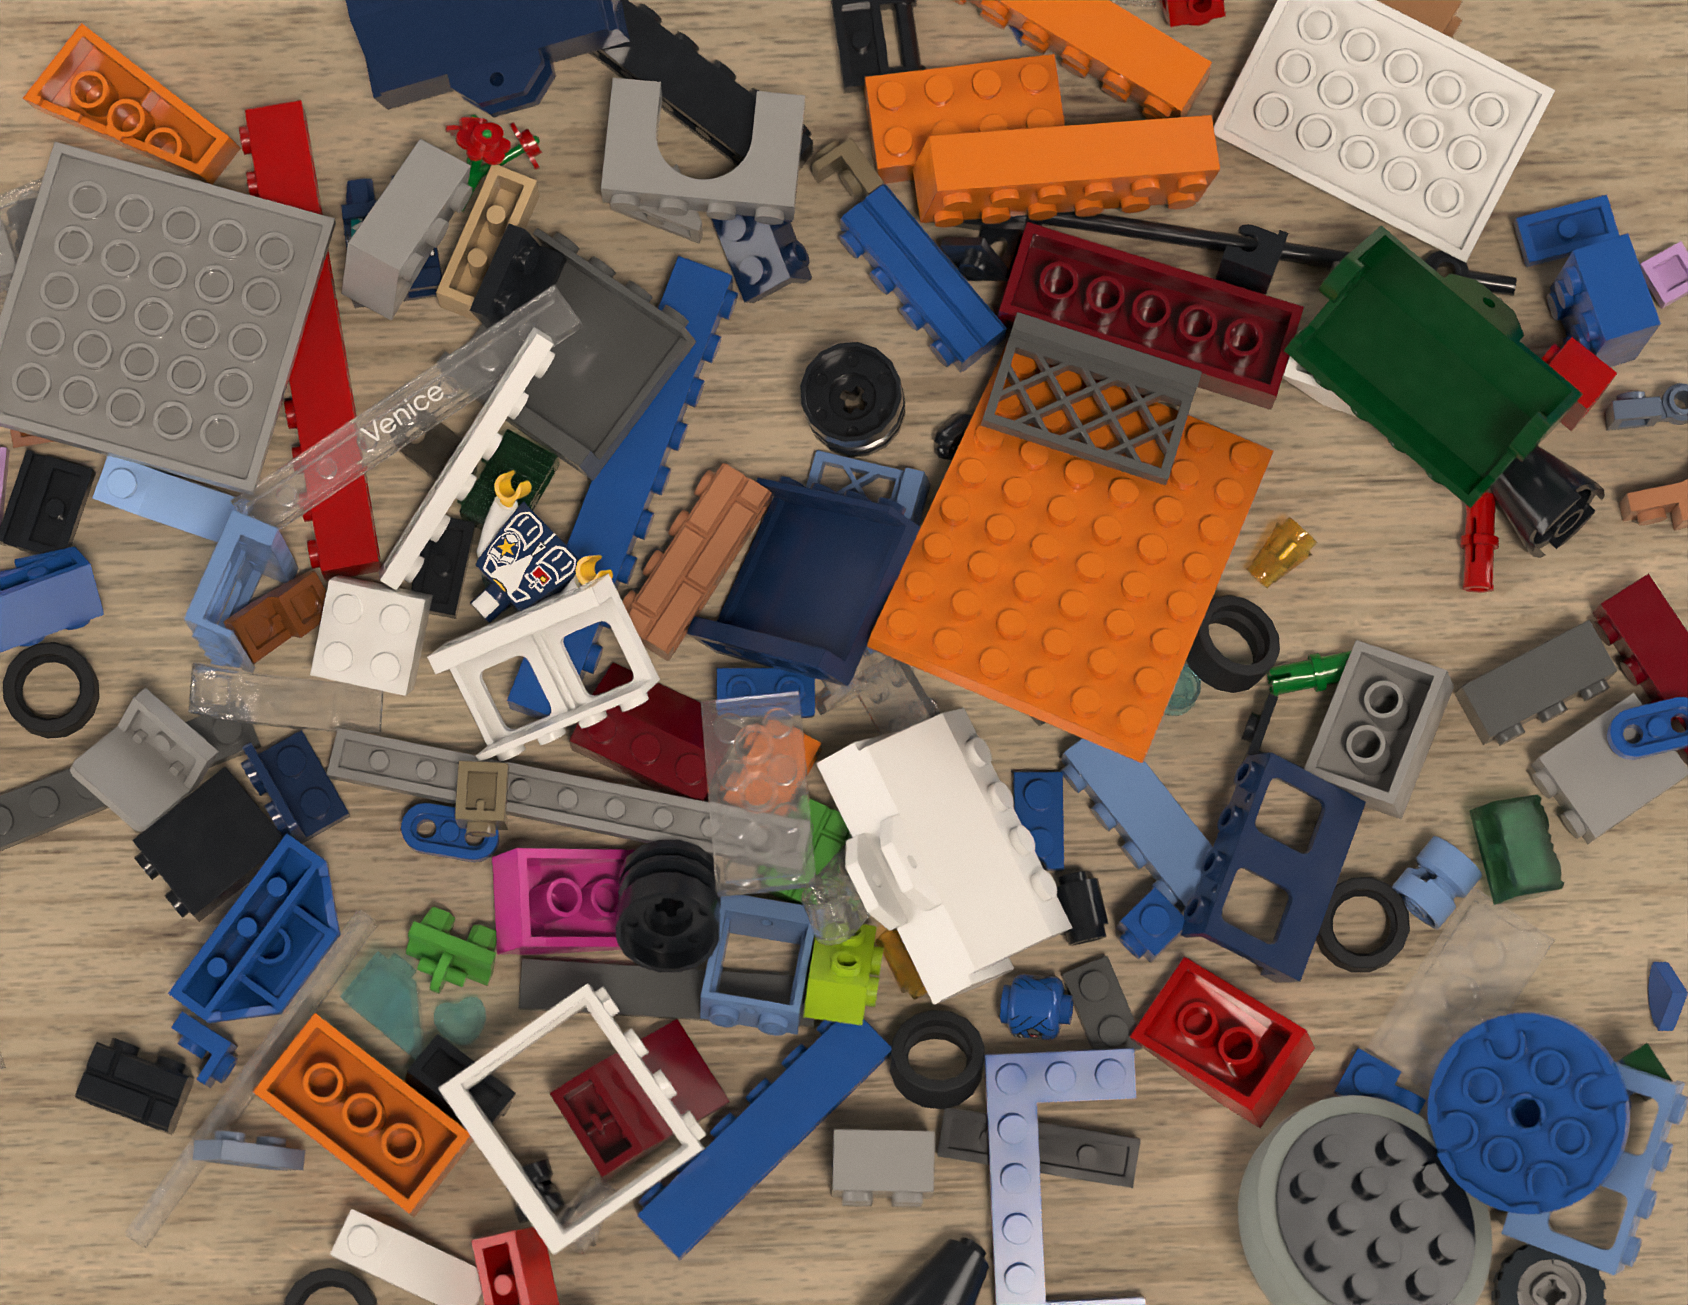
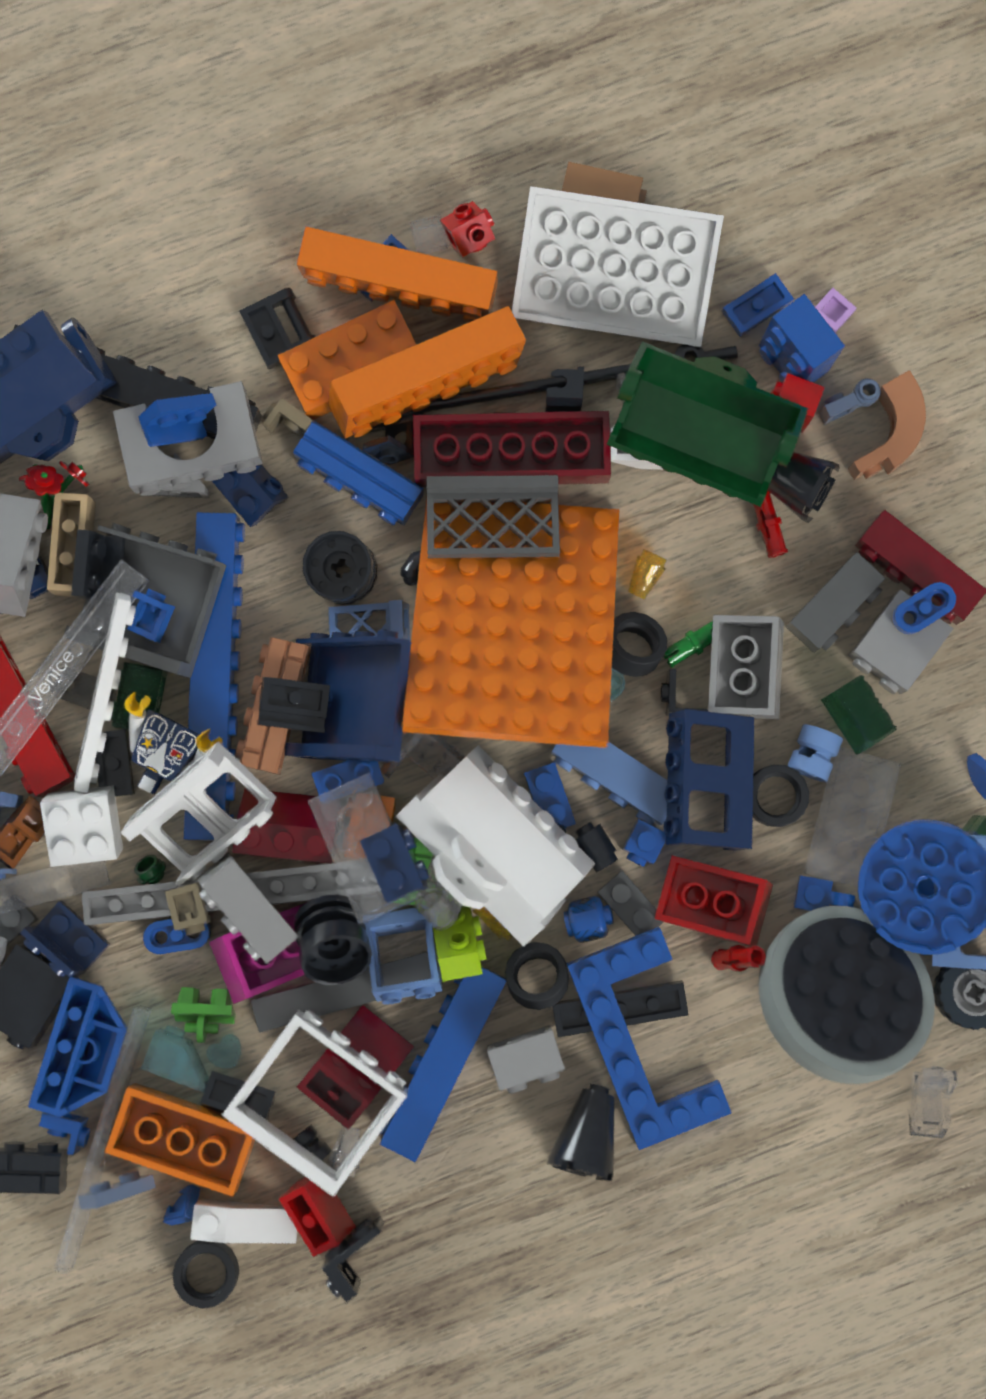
camera: 15 degrees left, 5 degrees up
(330, 1215) = (184, 1206): none -> blue tile
(443, 729) = (150, 870): none -> dark green plate
(566, 820) = (245, 909): none -> light grey wedge
(569, 376) = (151, 615): none -> blue bracket
(697, 118) = (176, 419): none -> blue bracket
(724, 565) = (293, 704): none -> black plate
(793, 824) = (395, 863): none -> dark blue bracket
(1229, 1128) = (738, 958): none -> red pin

